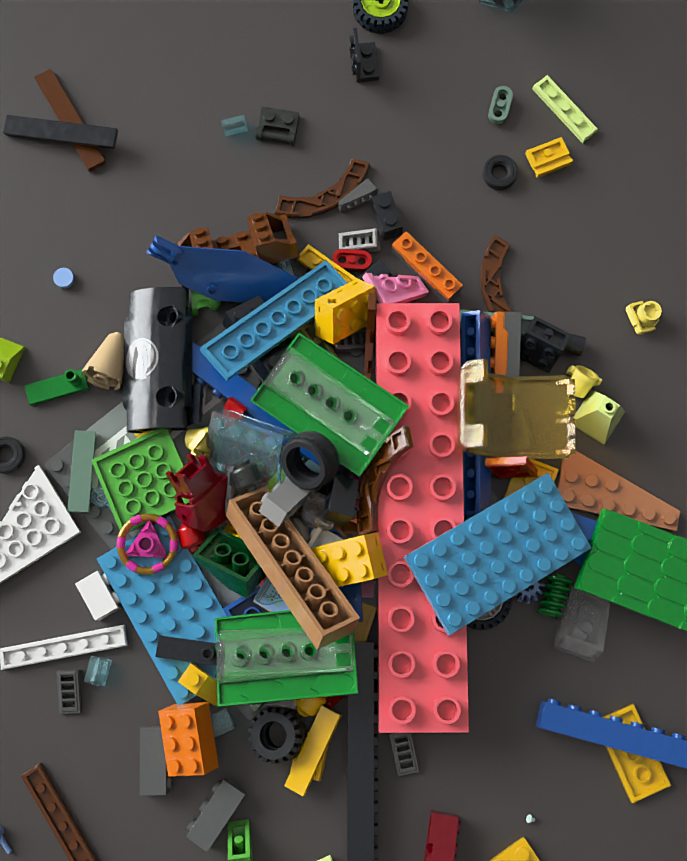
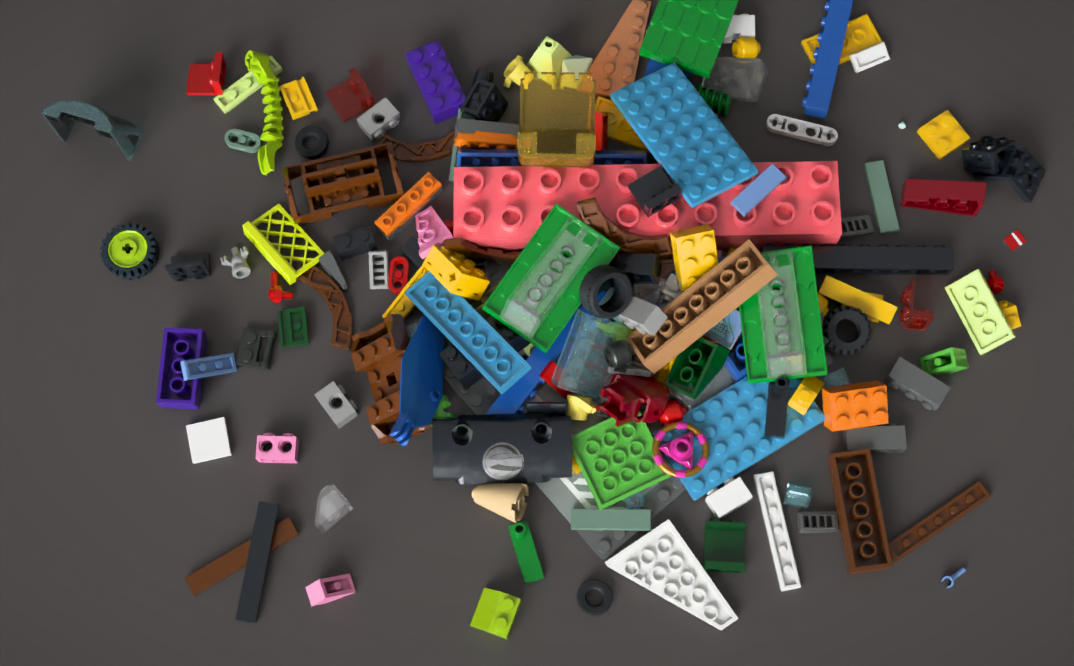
camera: 85 degrees left, 5 degrees down
(29, 200) = (330, 589): none -> bright pink slope
(47, 590) = (724, 546): none -> dark green panel
(63, 278) = (413, 552): light blue tile -> none
(72, 737) = (859, 511): none -> reddish brown brick
(107, 195) = (330, 508): none -> clear slope
(170, 147) = (276, 454): none -> bright pink brick
(185, 85) = (208, 440): none -> white tile
(219, 191) = (339, 415): none -> light grey brick
(233, 121) = (256, 389): clear light blue piece -> none
(254, 76) = (208, 366): none -> medium blue tile
(255, 54) = (178, 346): none -> dark purple brick
(295, 807) = (910, 318): none -> clear red bracket
(298, 159) = (293, 327): none -> dark green plate
(334, 141) = (276, 293): none -> red piece
(367, 104) = (238, 262): none -> light grey piece
(374, 137) = (269, 249): none -> neon yellow fence
(425, 515) = (654, 191): none -> black bracket
(427, 635) = (758, 190): none -> medium blue tile
(440, 787) = (881, 197): none -> sand green tile
(454, 220) = (331, 191): none -> reddish brown piece
(518, 697) = (801, 132): none -> white beam
(525, 227) = (381, 110): none -> light grey brick
(551, 209) = (351, 96): none -> clear red bracket
(570, 67) = (207, 78): none -> red bracket
(571, 294) = (436, 81): none -> dark purple brick
(584, 112) = (260, 66): none -> lime piece
(590, 443) = (576, 64): none -> light aqua slope
(614, 785) = (869, 57): none -> white tile
(620, 637) = (746, 47): none -> yellow head
(644, 316) = (455, 20): light yellow piece -> none
(646, 632) = (740, 26): none -> white brick

